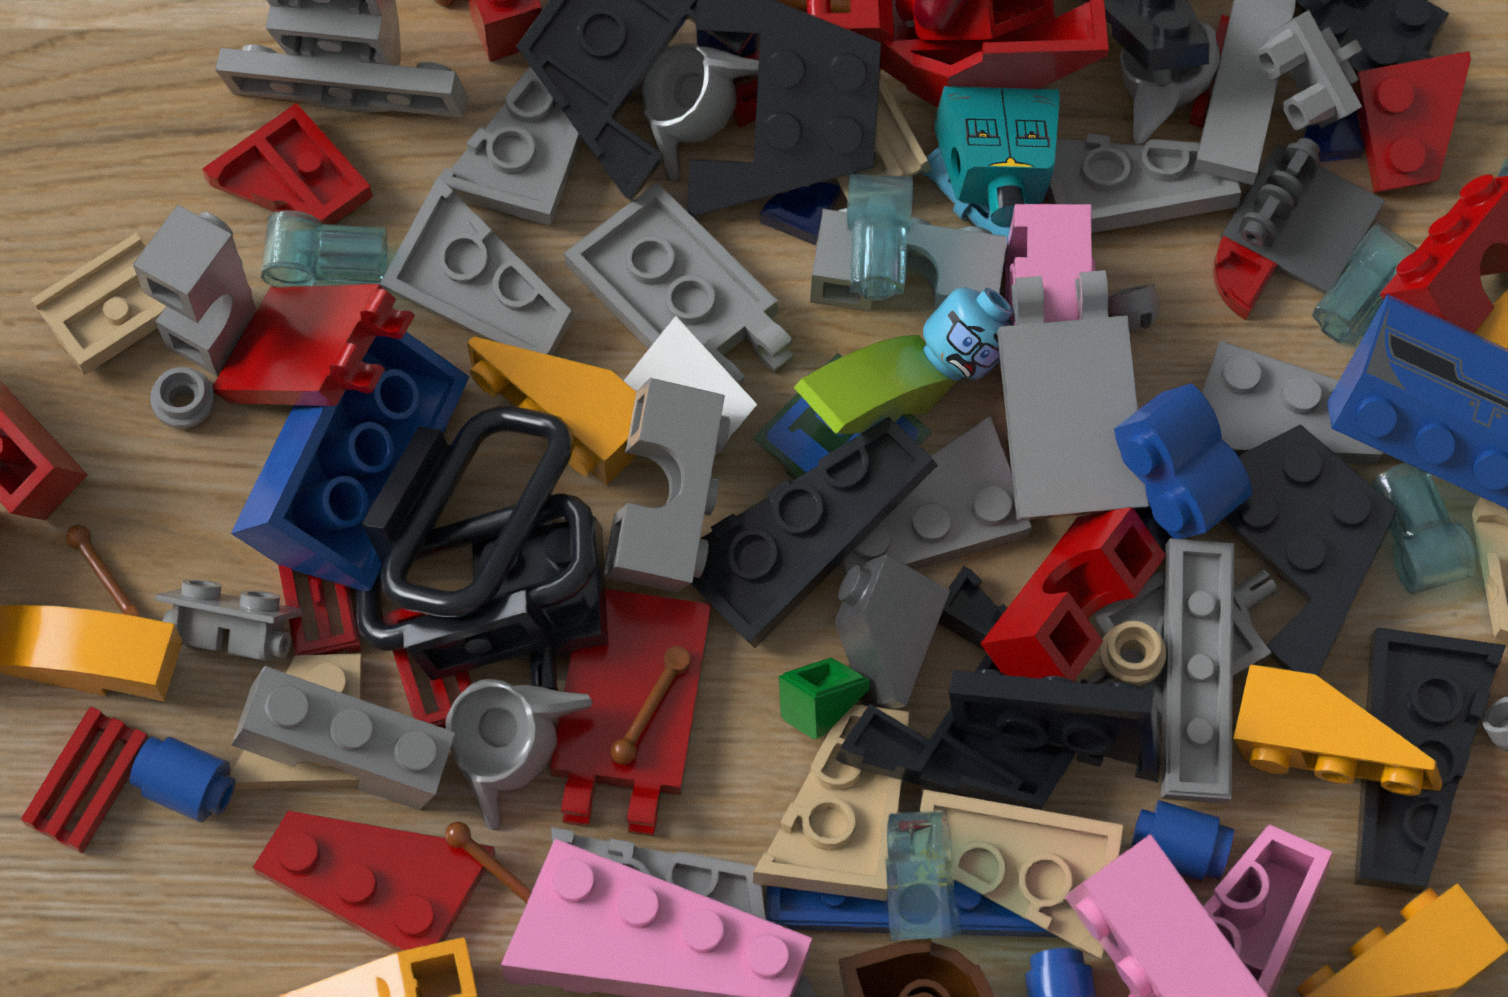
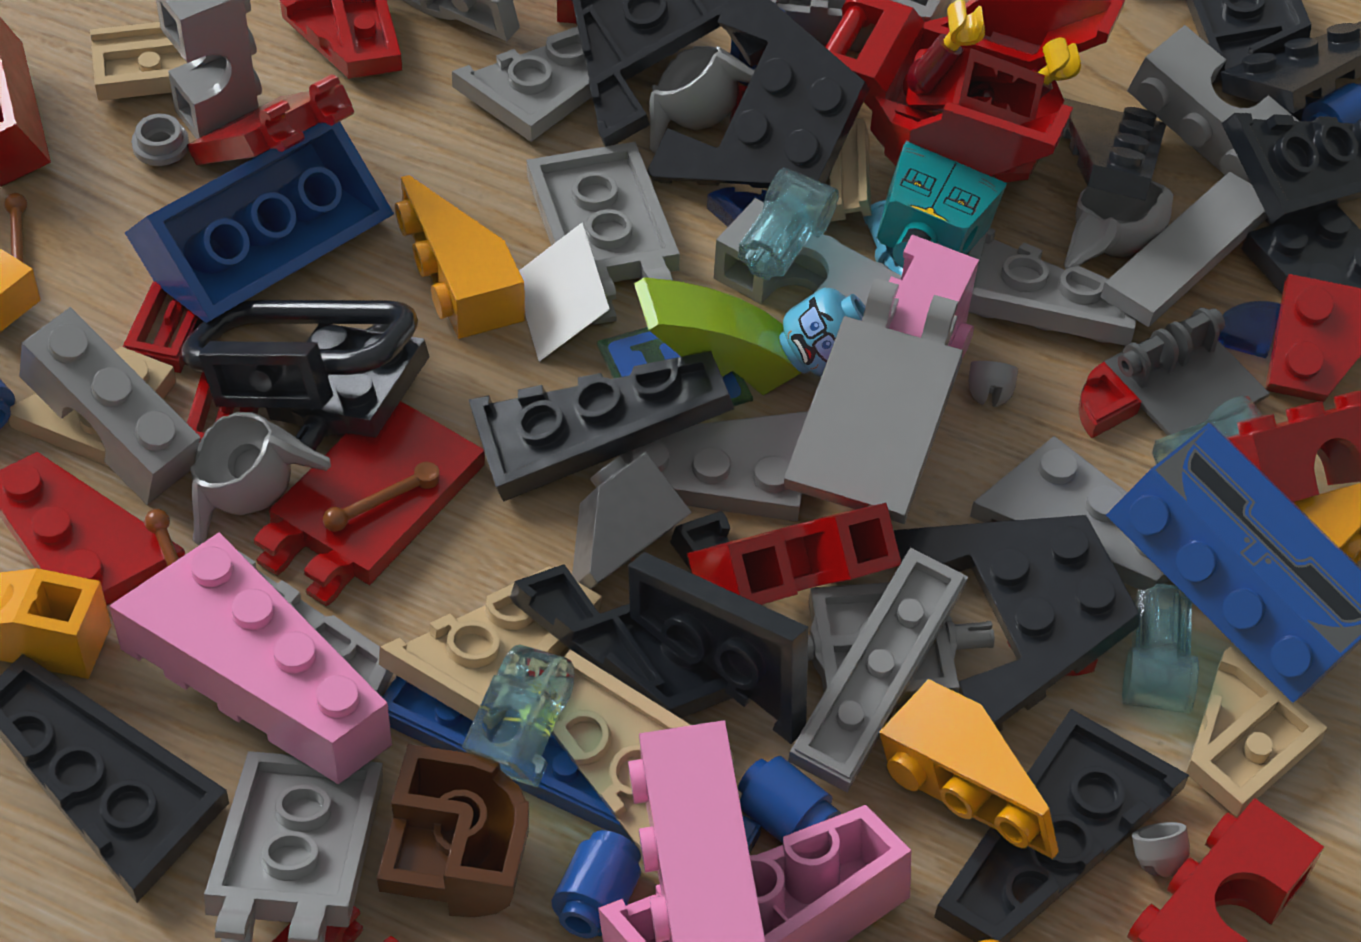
camera: 25 degrees right, 15 degrees down
(253, 619) = (100, 305): light grey hinge -> none
(306, 251) = (368, 95): clear light blue piece -> none
(422, 487) = (302, 259): black bar -> none
(473, 279) = (440, 144): light grey wing -> none
(681, 433) = (464, 372): light grey arch -> none
(819, 695) = (531, 550): green slope -> none
(1133, 636) = (835, 616): tan plate -> none
(1183, 462) = (952, 485): blue brick -> none
(1317, 68) = (1254, 256): light grey hips -> none

